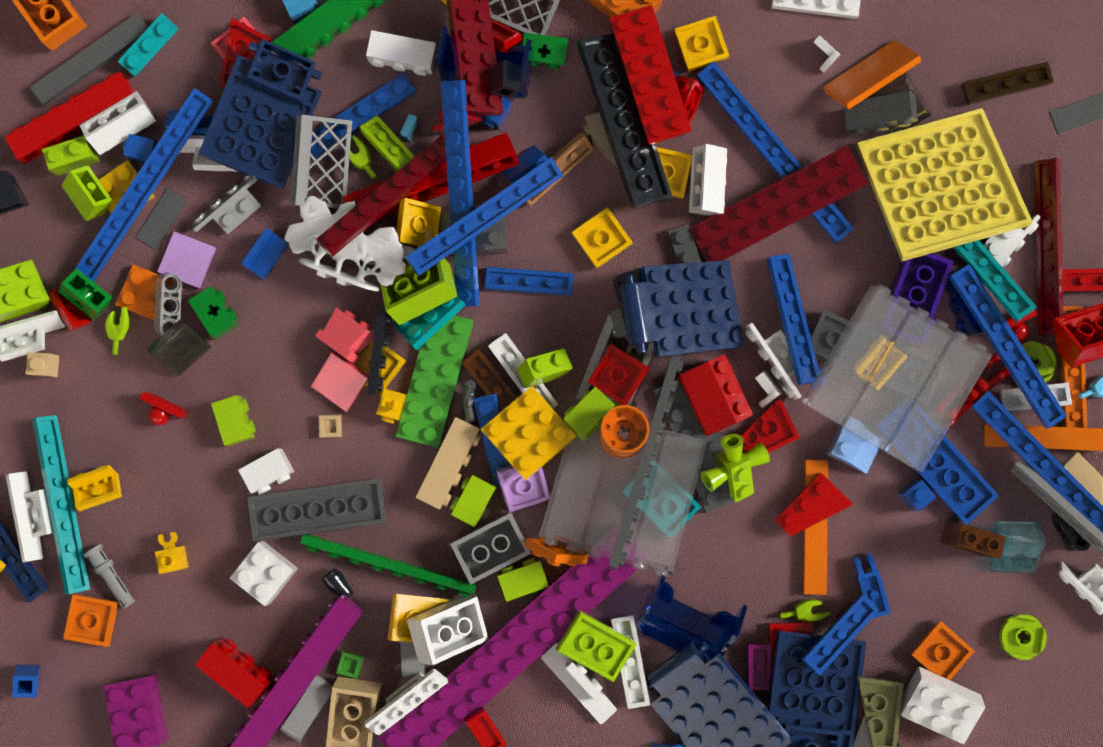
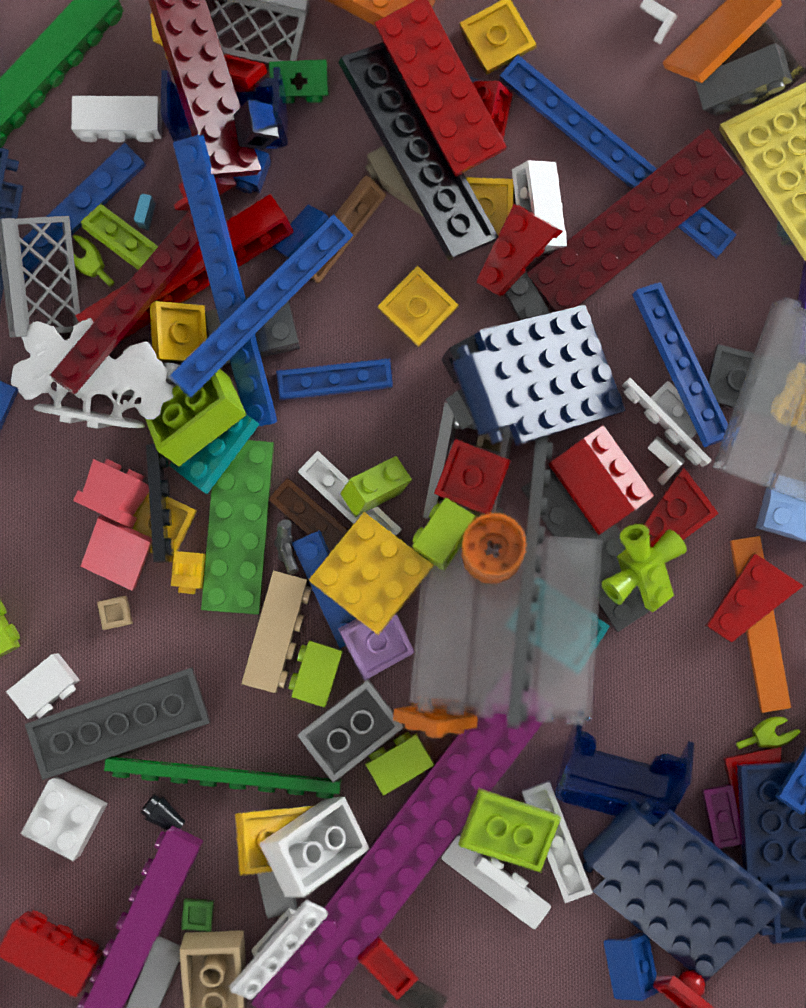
camera: 10 degrees left, 0 degrees up
(688, 204) = (518, 243): none -> red wing

